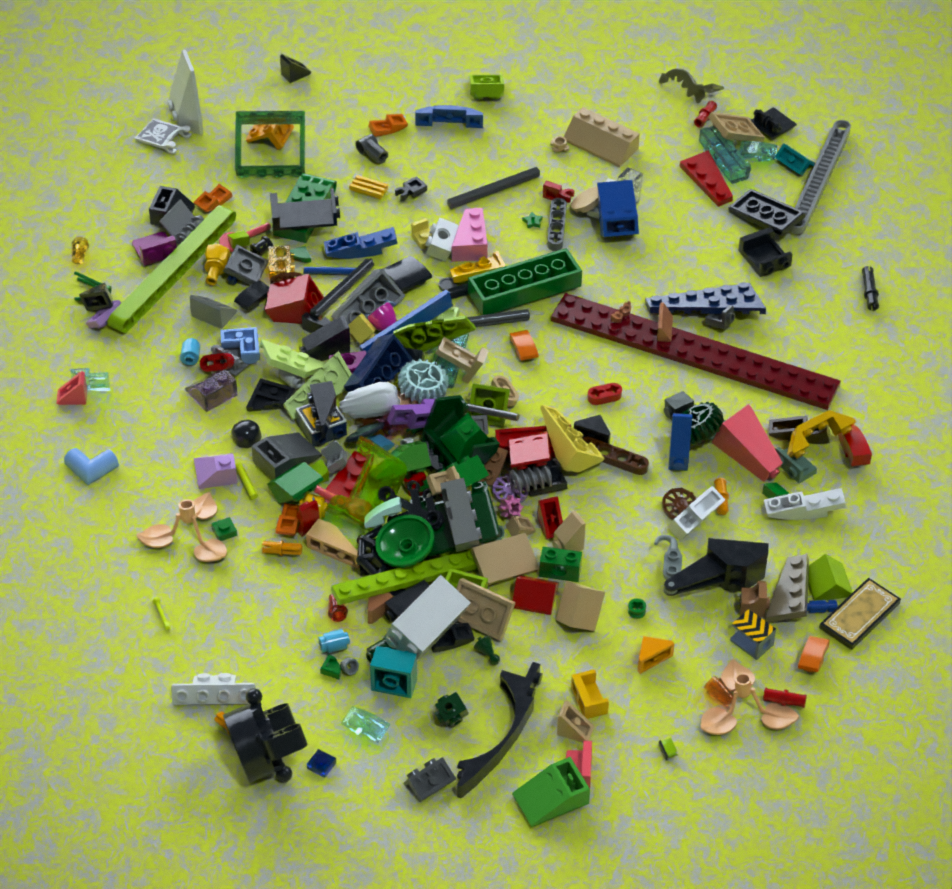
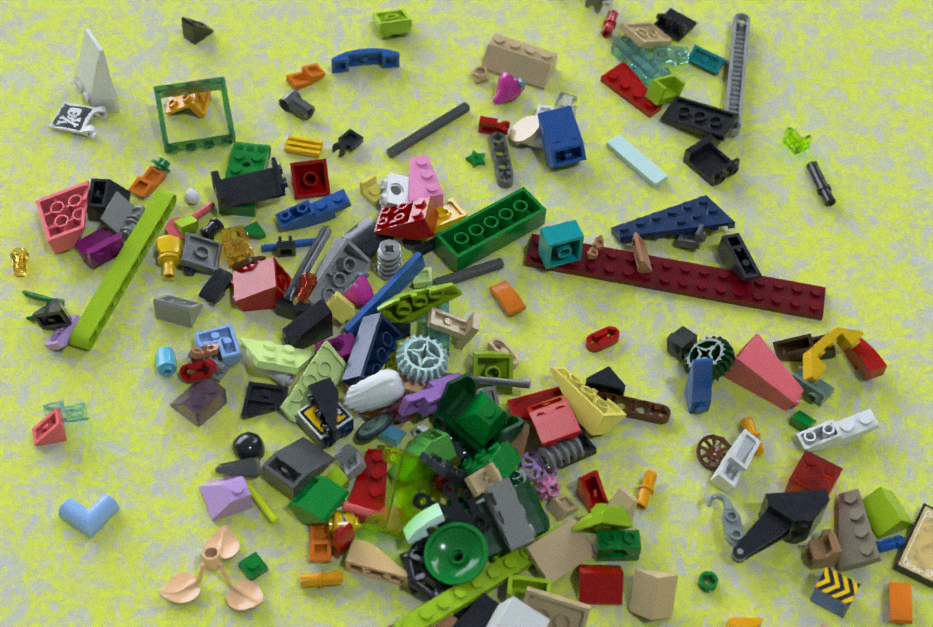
camera: 15 degrees left, 5 degrees up
(127, 215) = (64, 216): none -> coral wedge
(227, 346) = (207, 351): none -> nougat piece
(229, 184) = (161, 164): none -> green plate
(240, 448) = (246, 467): none -> dark grey slope
(250, 216) = (191, 196): none -> white hinge
(326, 272) = (285, 248): none -> black tile
(333, 305) = (306, 285): none -> clear red cone
(365, 214) = (309, 178): none -> red slope
(411, 467) = (444, 468): none -> black plate
(418, 291) = (388, 259): none -> light grey piece
(447, 262) = (408, 220): none -> red slope
(550, 535) = (604, 518): none -> lime slope
(582, 160) = (508, 88): none -> dark pink hat
(585, 302) = (560, 244): none -> teal brick
(603, 524) = (646, 489): none -> light orange axle
(691, 243) = (637, 161): none -> light aqua tile
(738, 180) = (665, 89): none -> lime panel
(759, 339) = (737, 257): none -> black slope
(769, 530) = (813, 474): none -> clear red brick
(857, 248) = (795, 141): none -> clear neon green bracket

